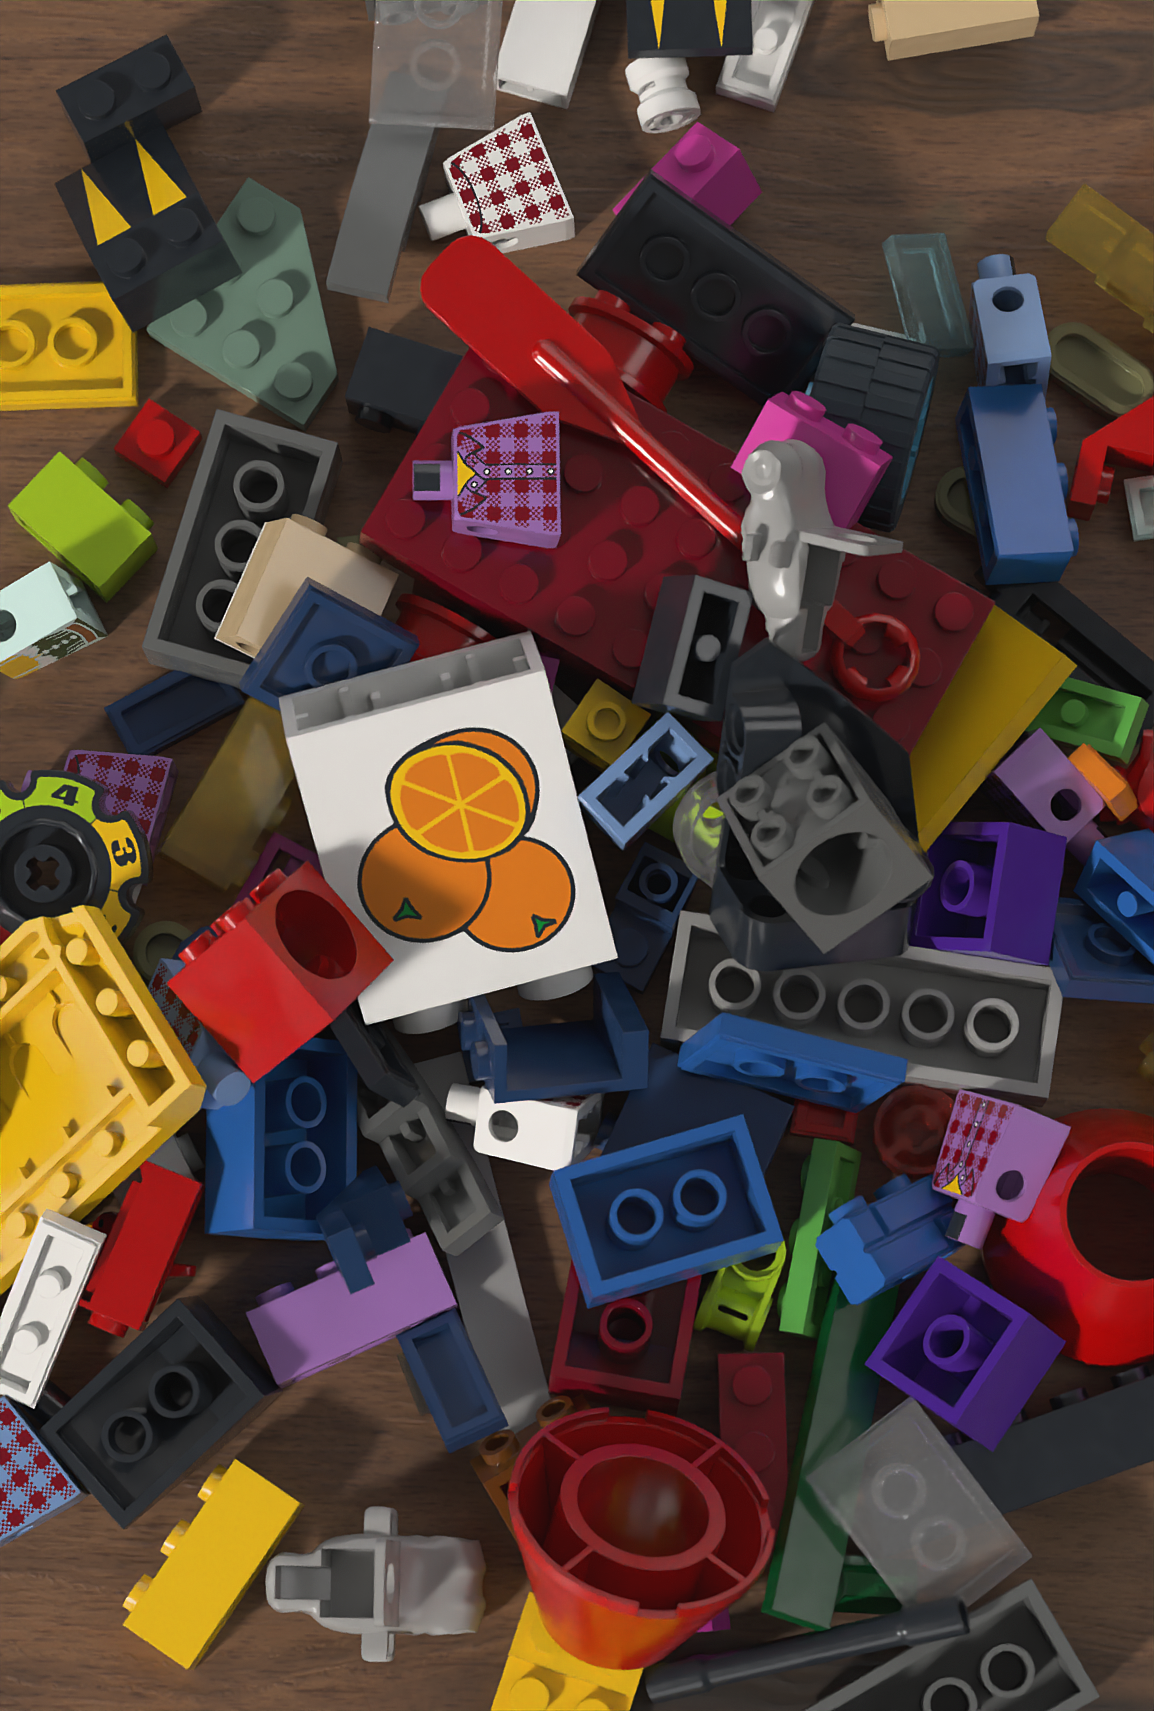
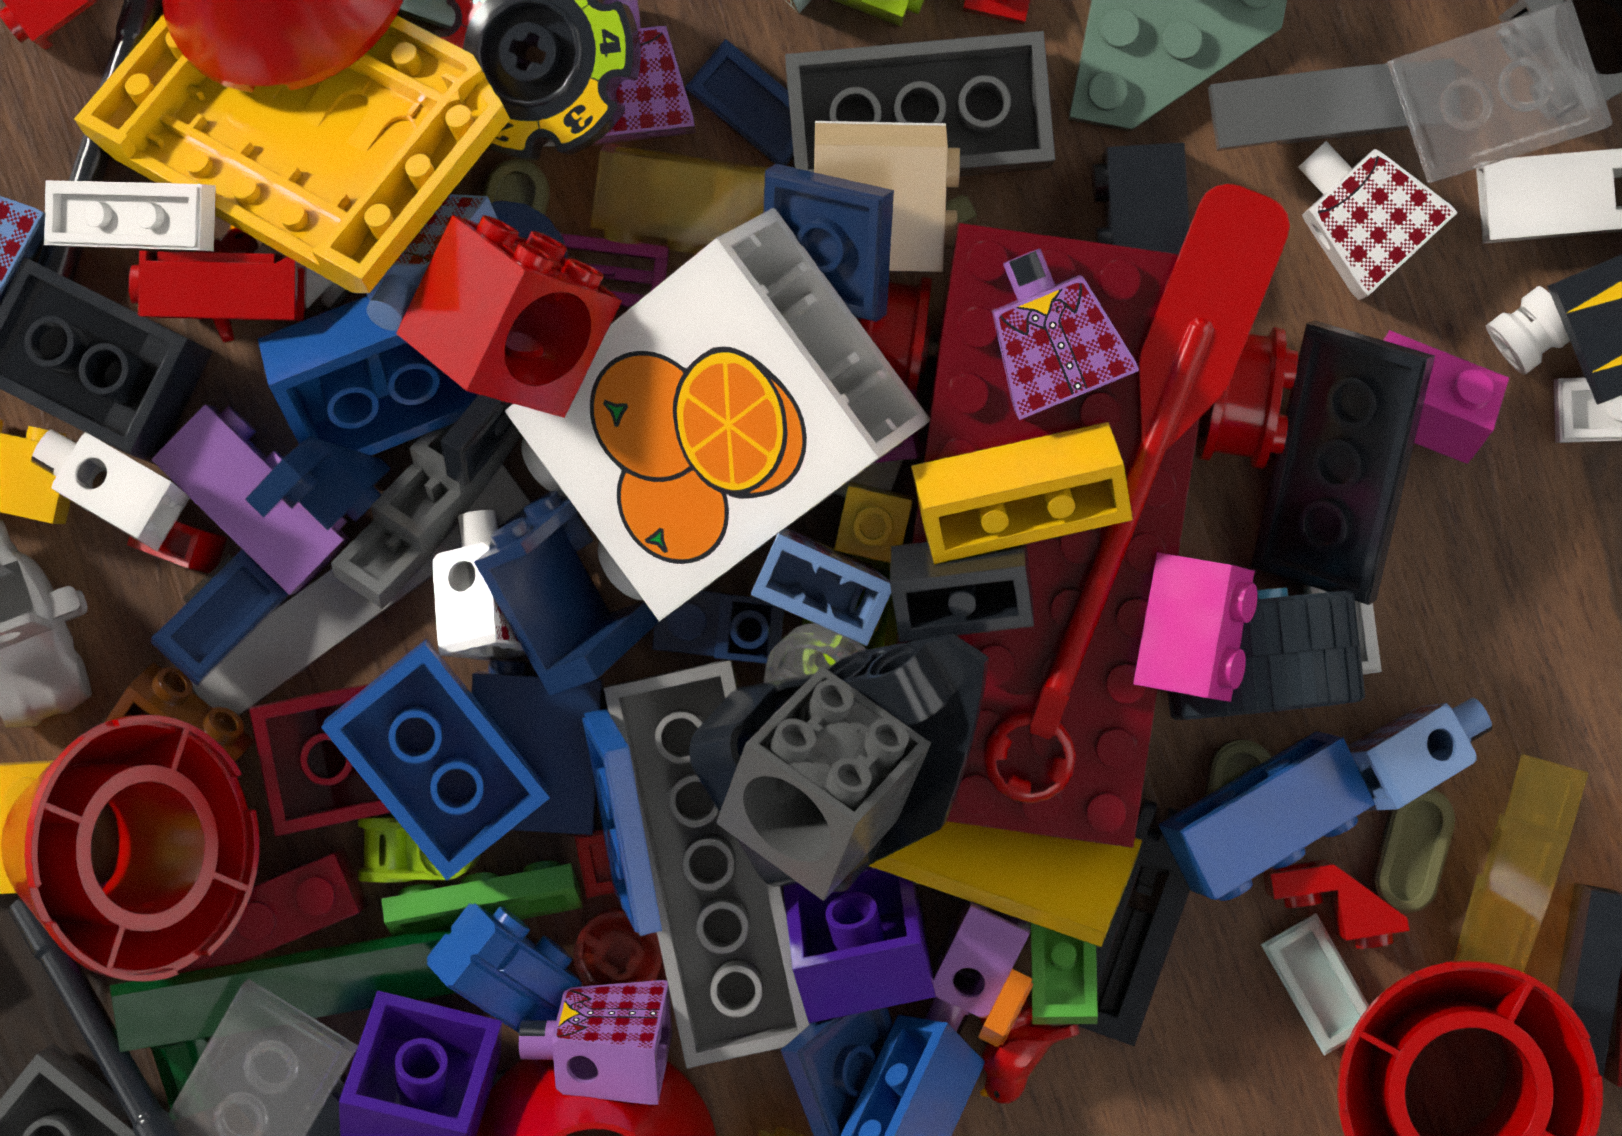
camera: 60 degrees right, 10 degrees up
(314, 1419) = (129, 498): none -> white torso
(363, 1403) = (188, 547): none -> red piece
(628, 561) = (1022, 492): none -> yellow brick
(793, 544) = (1097, 648): light grey piece -> none
(928, 292) = (1426, 661): clear light blue tile -> none

